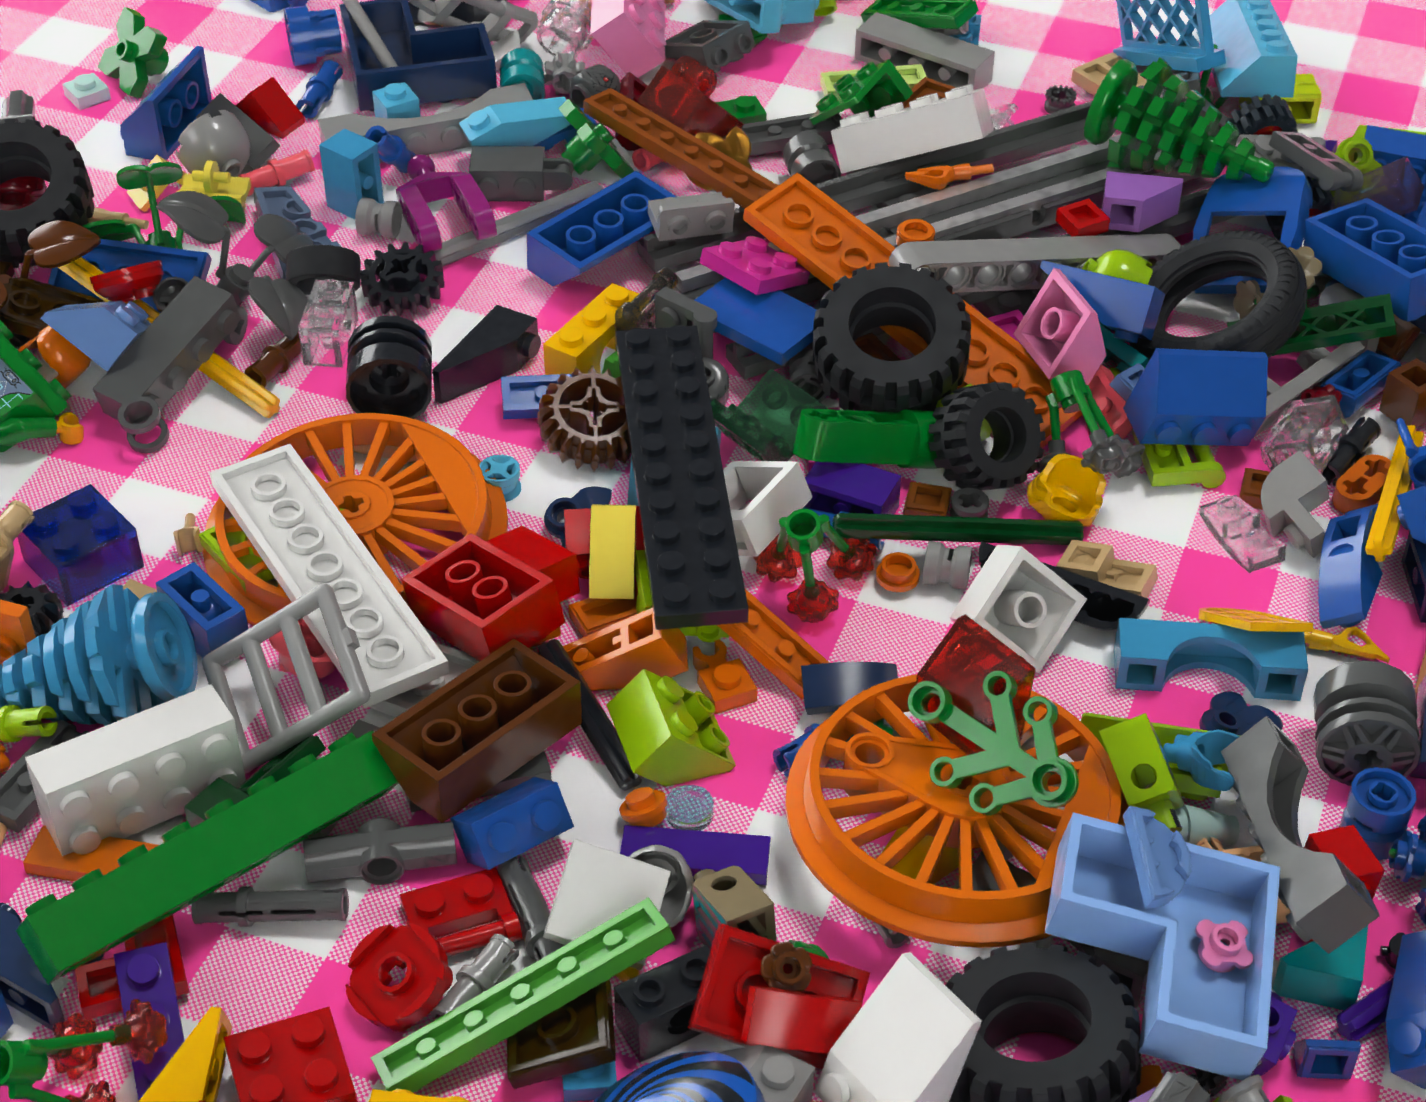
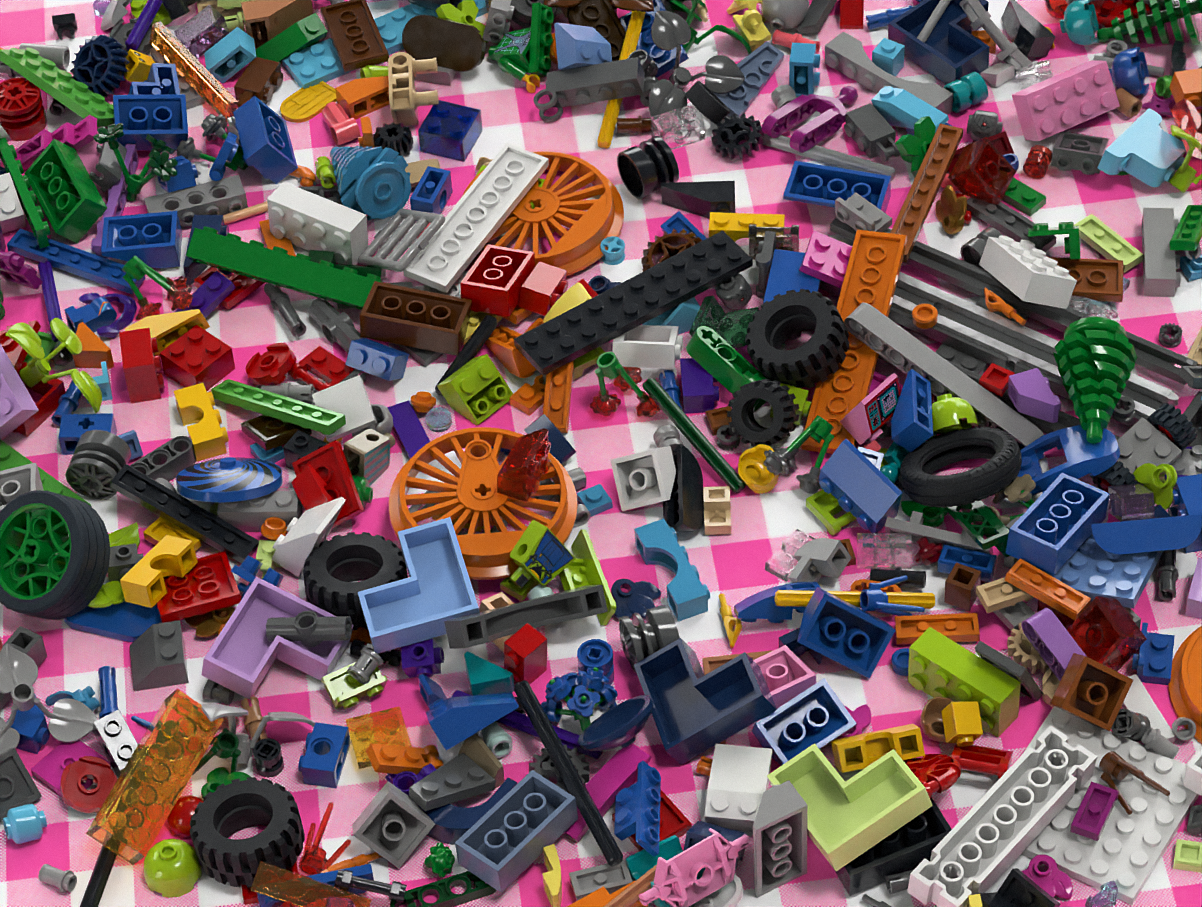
camera: 65 degrees right, 5 degrees up
(130, 282) = (625, 38): red piece -> none
(390, 148) = (838, 72): blue pin -> none
(561, 71) = (991, 102): light grey gear -> none
(782, 954) = (337, 474): reddish brown plate -> none
(898, 572) = (650, 425): orange plate -> none
(1000, 747) = (475, 504): green plant -> none
(1158, 856) = (442, 556): medium blue plate -> none
(1198, 755) = (577, 577): dark azure helmet -> none
(1217, 955) = (434, 603): bright pink plate -> none
(1253, 620) = (702, 571): yellow window -> none
(1317, 161) = (1130, 456): dark grey plate -> none

